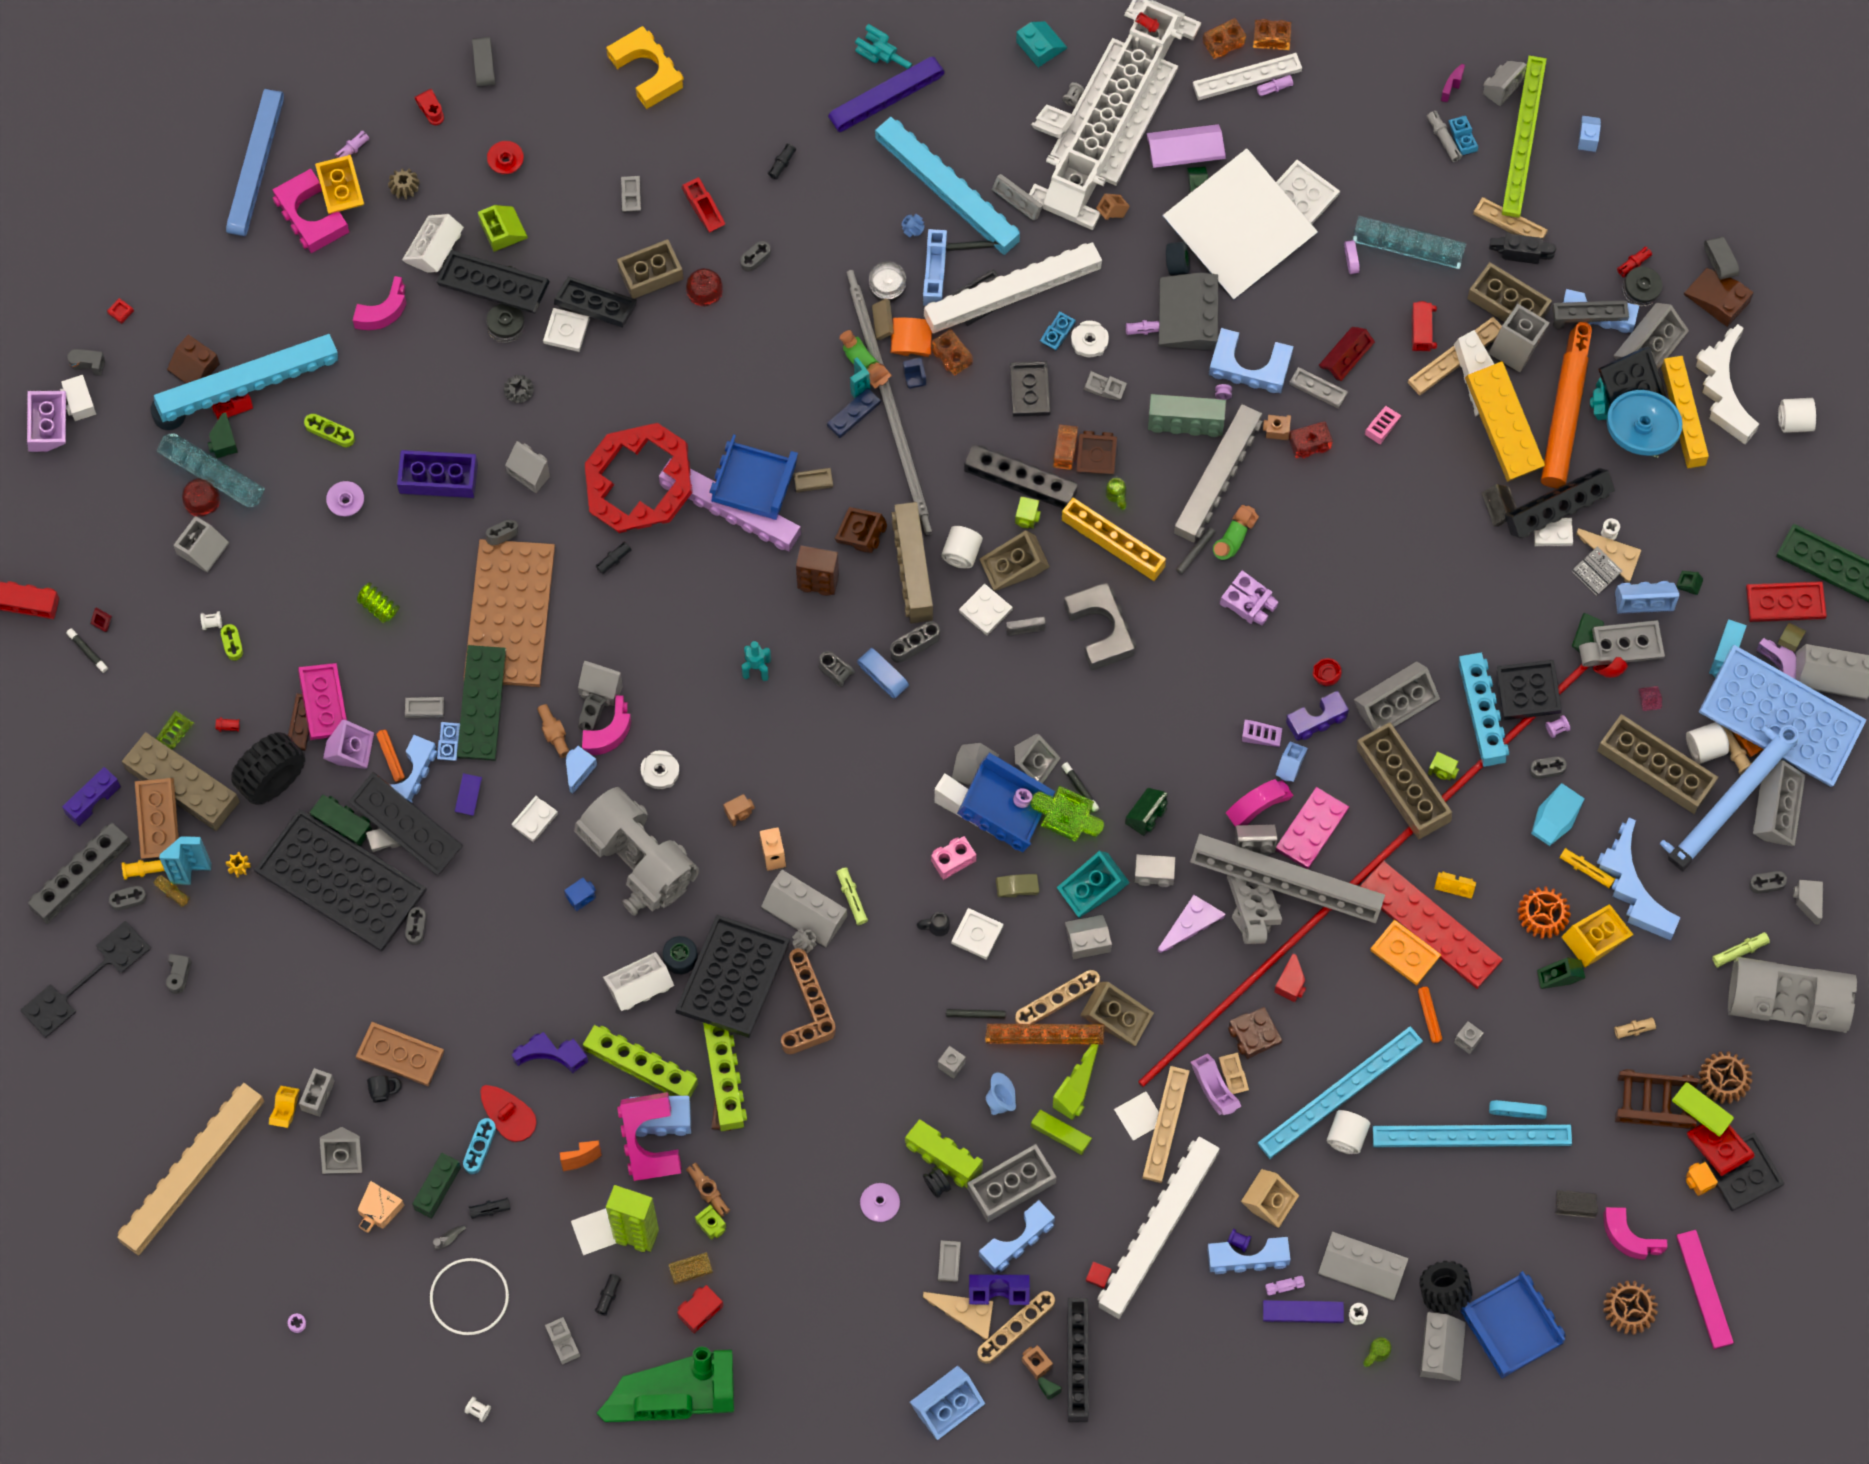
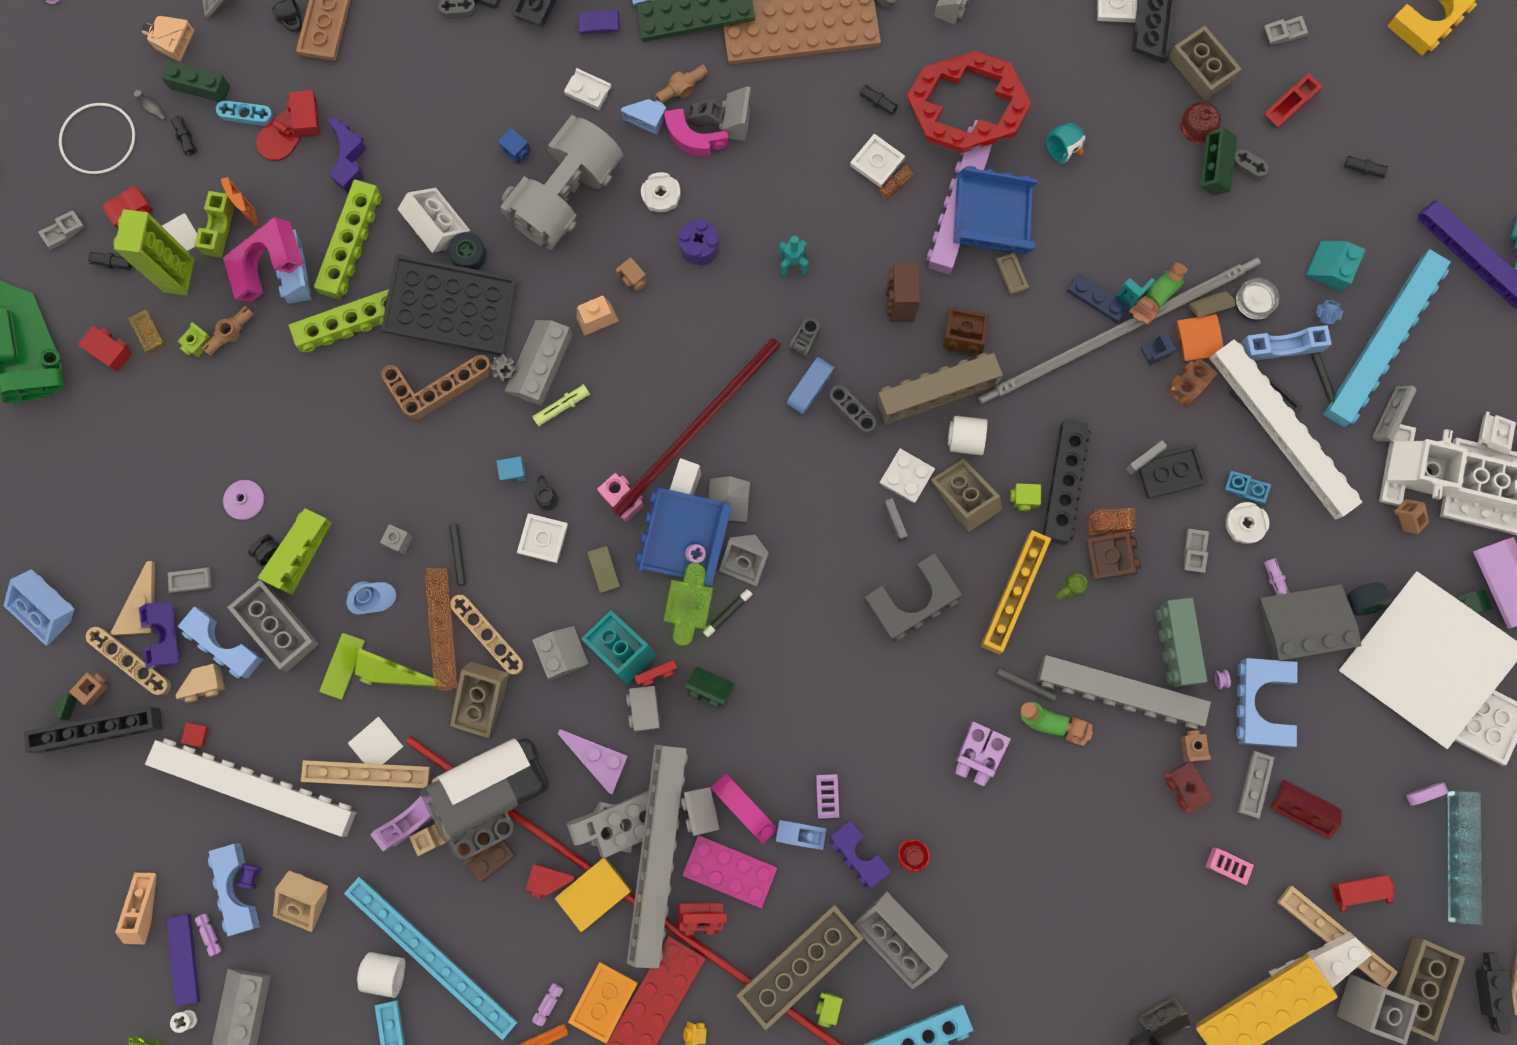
camera: 80 degrees right, 10 degrees up
(497, 1085) = (304, 113): none -> red brick
(557, 1270) = (130, 199): none -> red brick
(585, 1181) = (213, 238): none -> lime arch
(674, 571) = (877, 160): none -> white plate
(694, 404) = (1064, 141): none -> teal piece
(700, 560) = (896, 182): none -> clear orange axle
(723, 733) = (689, 239): none -> dark purple brick
(749, 280) = (1218, 161): none -> dark green brick
(868, 209) = (1335, 263): none -> teal slope
(902, 777) = (694, 429): none -> dark red axle
(906, 947) = (512, 469): none -> dark azure panel
(1015, 404) = (1146, 457): none -> light grey tile
(1051, 1258) = (200, 682): none -> tan slope
(1124, 851) = (649, 677): none -> red plate
(1207, 1016) = (481, 793): none -> piece
(1250, 1342) = (137, 910): none -> light nougat slope
(1310, 944) = (593, 894): none -> yellow tile
(1347, 855) = (709, 914): none -> red brick
(1399, 1000) = (547, 1004): none -> lavender axle

